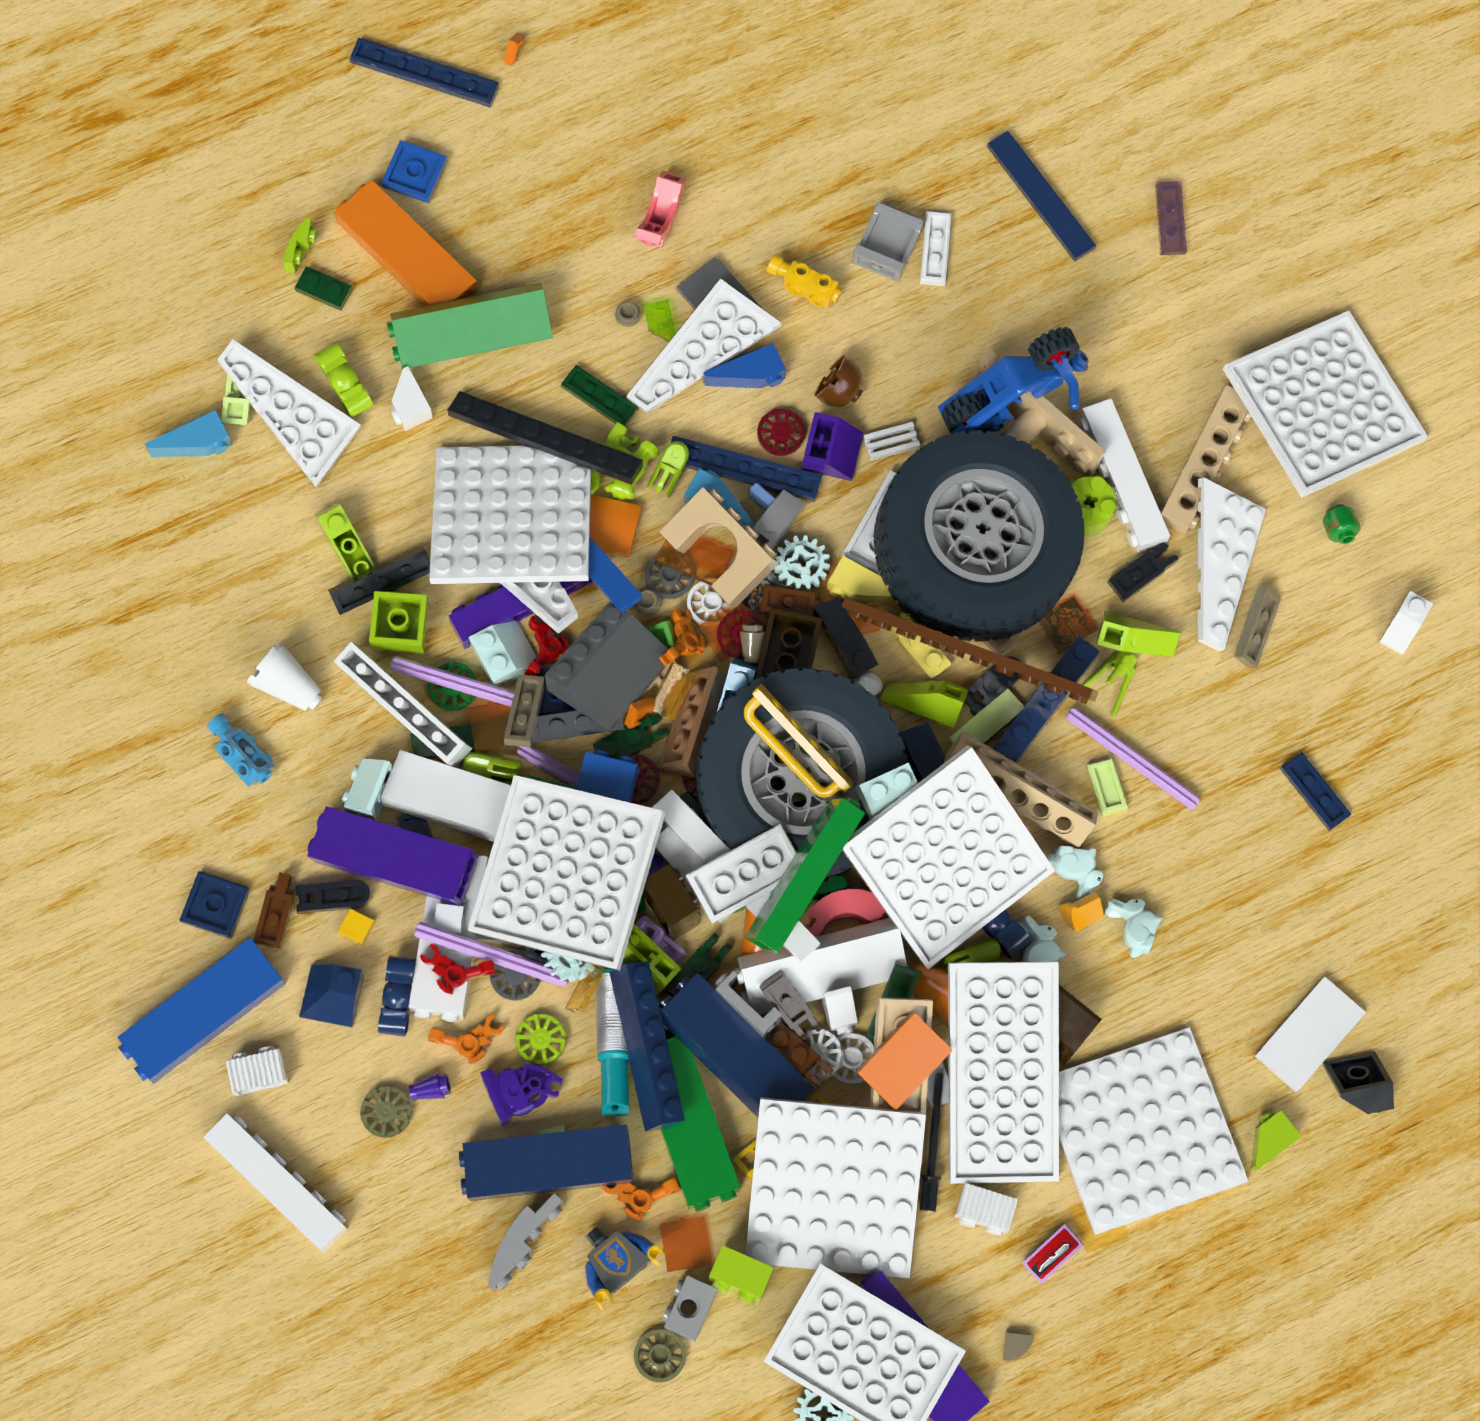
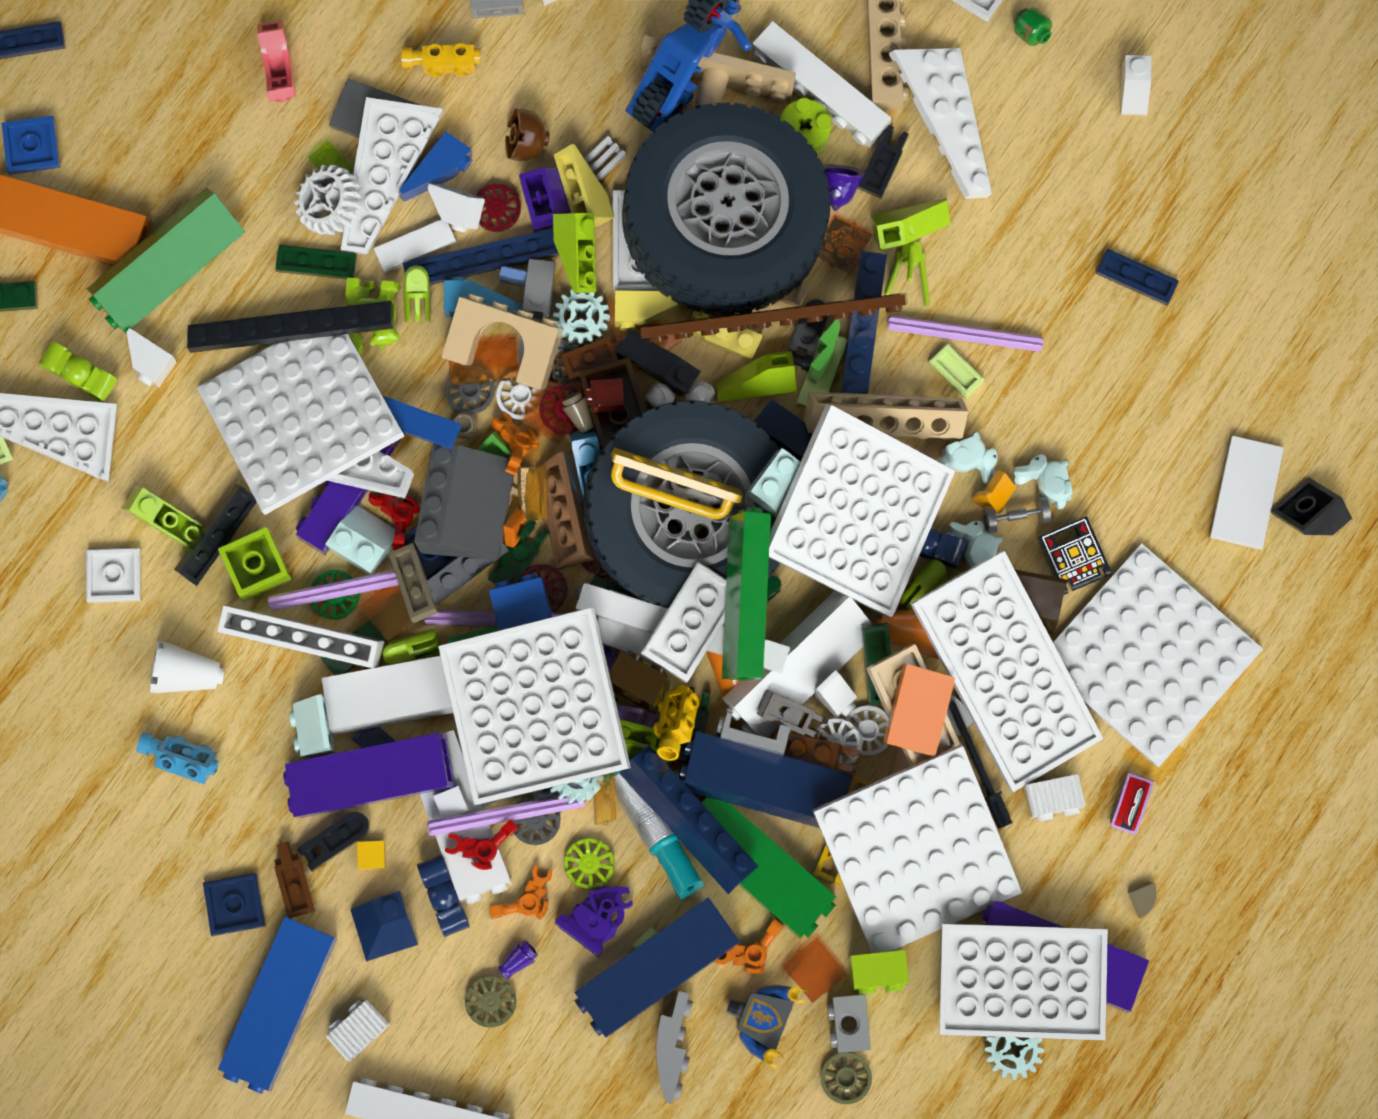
camera: 25 degrees left, 5 degrees up
(275, 568) = (113, 575): none -> white tile
(613, 524) = (395, 371): orange slope -> none
(627, 314) = (296, 172): dark tan plate -> none
(638, 348) = (336, 198): none -> white gear
(684, 954) = (676, 721): none -> yellow brick
(692, 427) = (414, 245): none -> white tile
(746, 412) = (457, 207): none -> white slope
(782, 639) = (606, 395): none -> clear red brick
(828, 502) = (576, 248): none -> lime slope
(832, 664) = (659, 395): none -> white piece
(844, 904) = (791, 596): coral arch -> none
(863, 456) = (581, 186): none -> light yellow slope
(1003, 701) = (826, 349): none -> bright green slope
(1093, 569) = (842, 183): none -> dark purple piece
(1116, 948) = (1042, 510): none -> flat silver wheel
(1123, 1009) = (1076, 559): none -> black container
(1257, 627) = (1009, 158): dark tan plate -> none
(1272, 1138) = (1263, 601): lime slope -> none

